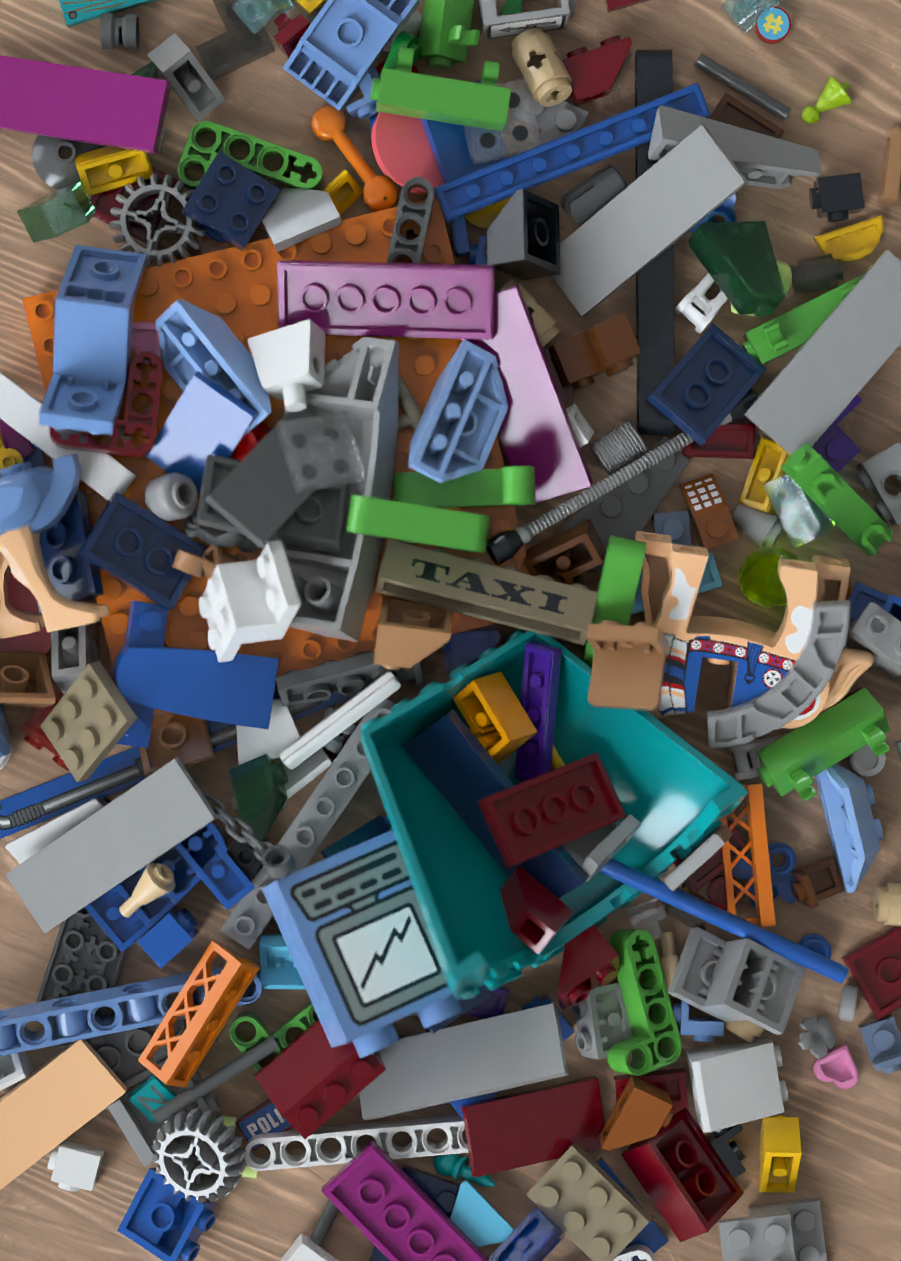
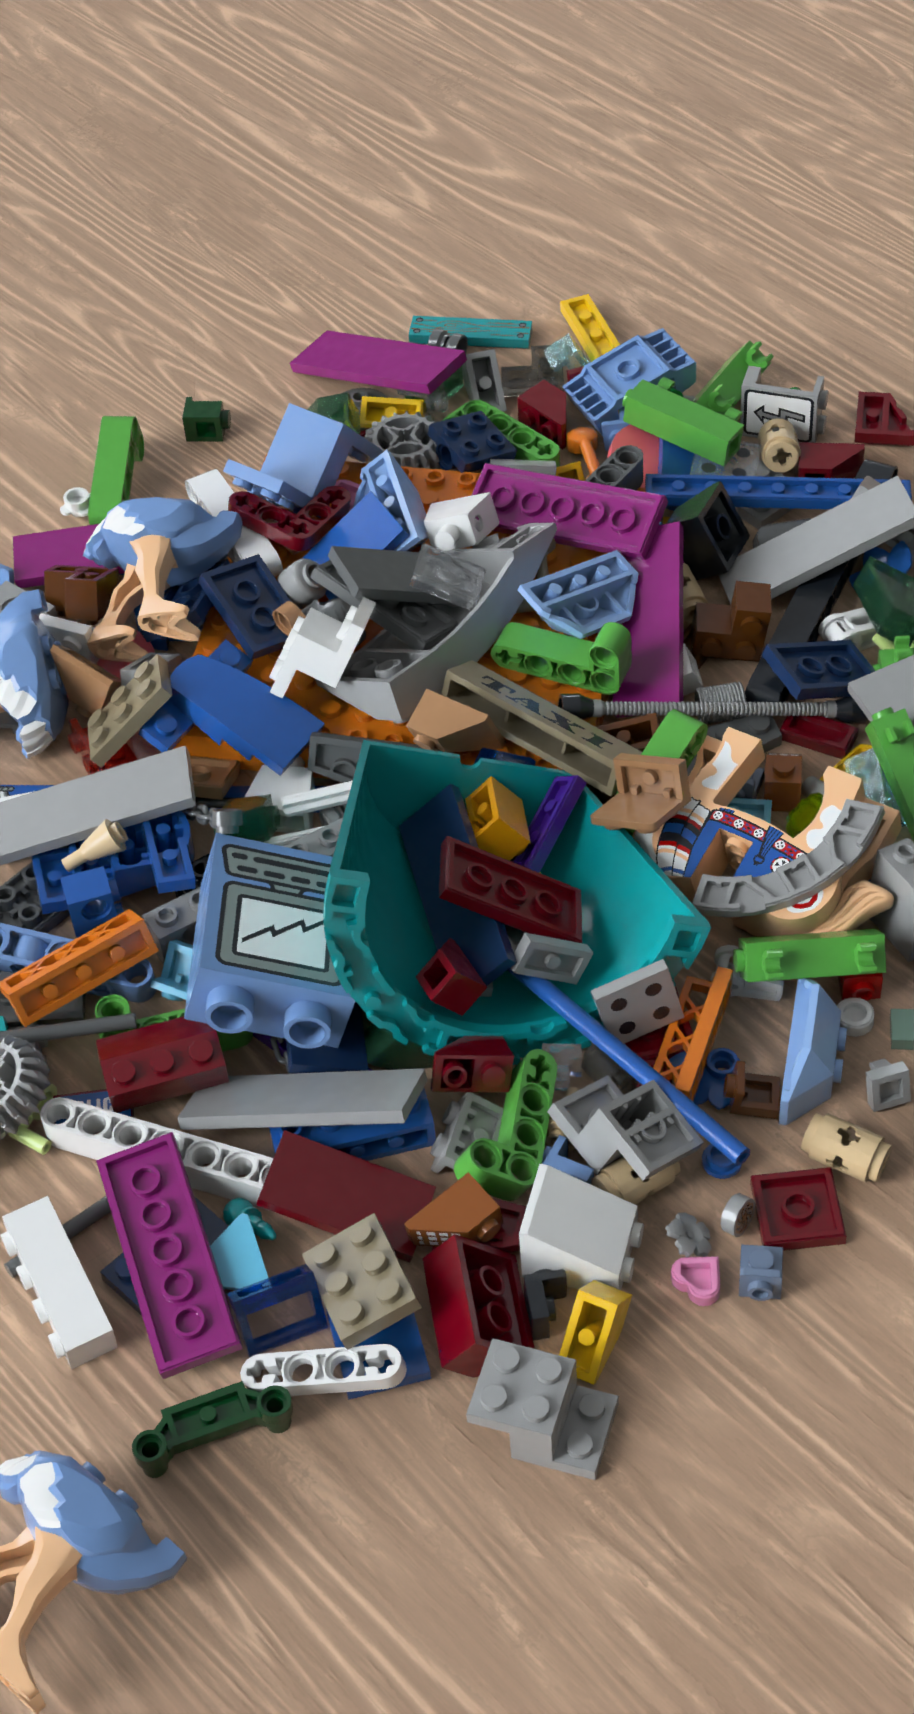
camera: 30 degrees right, 40 degrees down
(274, 97) = (545, 411): none -> dark red slope
(418, 524) = (509, 642): bright green beam -> none

